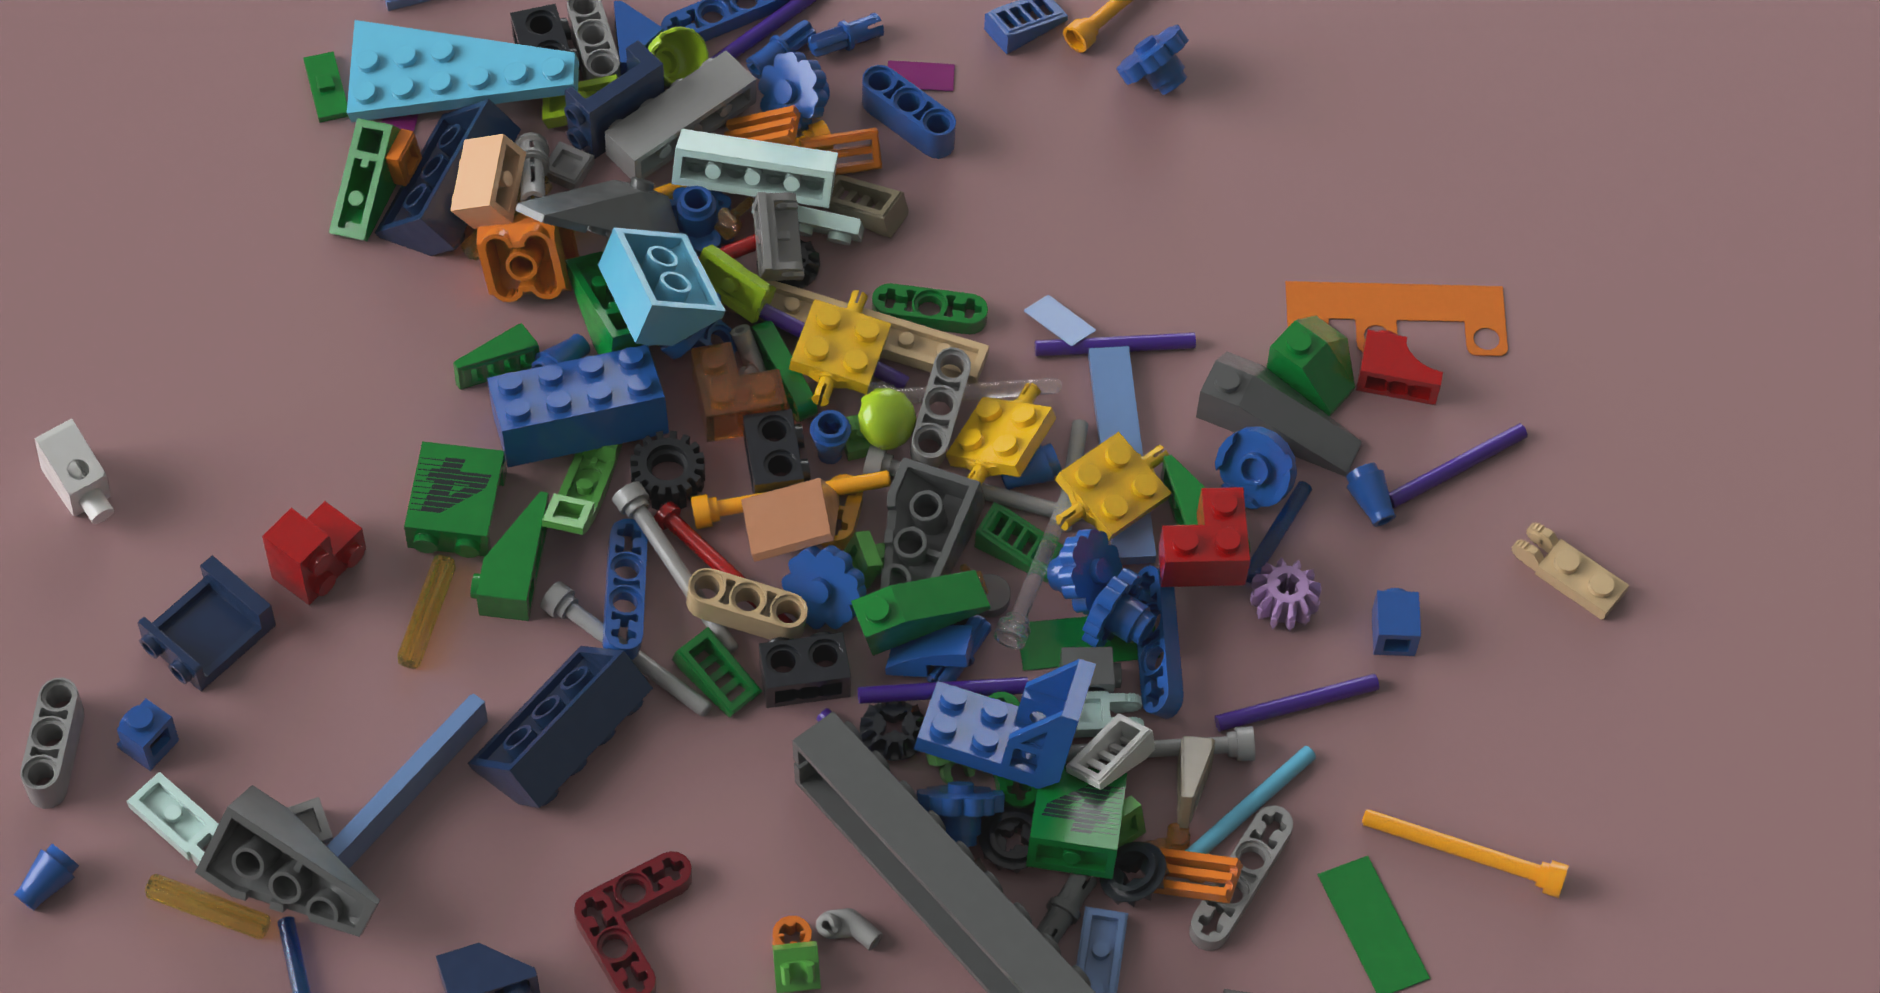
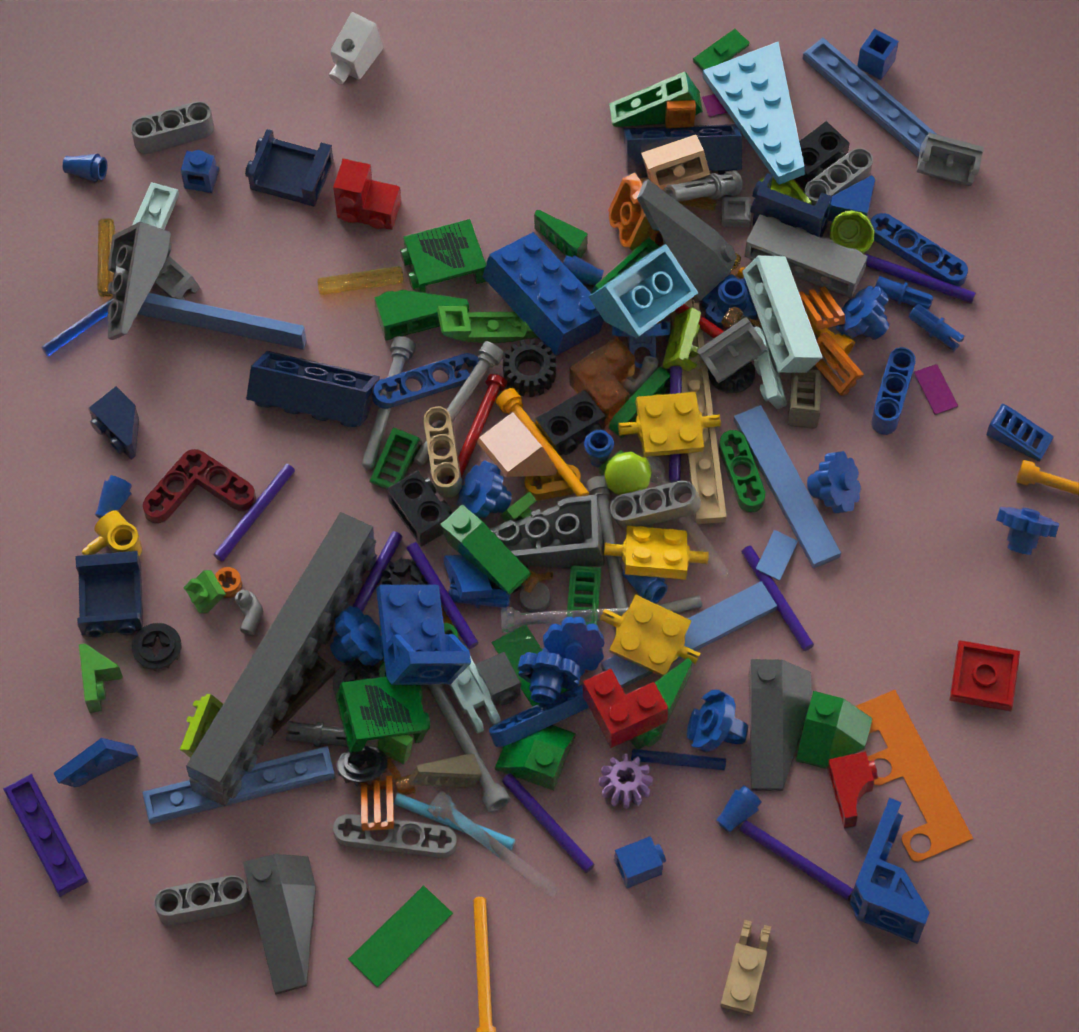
camera: 70 degrees right, 5 degrees up
(704, 869) = (254, 512): none -> dark purple bar
(976, 272) = (787, 487): none -> medium blue tile
(1003, 218) = (836, 482): none -> blue plant
(1120, 730) = (448, 707): white slope -> none
(1213, 674) = (538, 756): none -> green slope
(1235, 801) = (444, 807): none -> clear piece
(1314, 184) = (984, 675): none -> red plate
(1515, 388) = (890, 902): none -> blue bracket

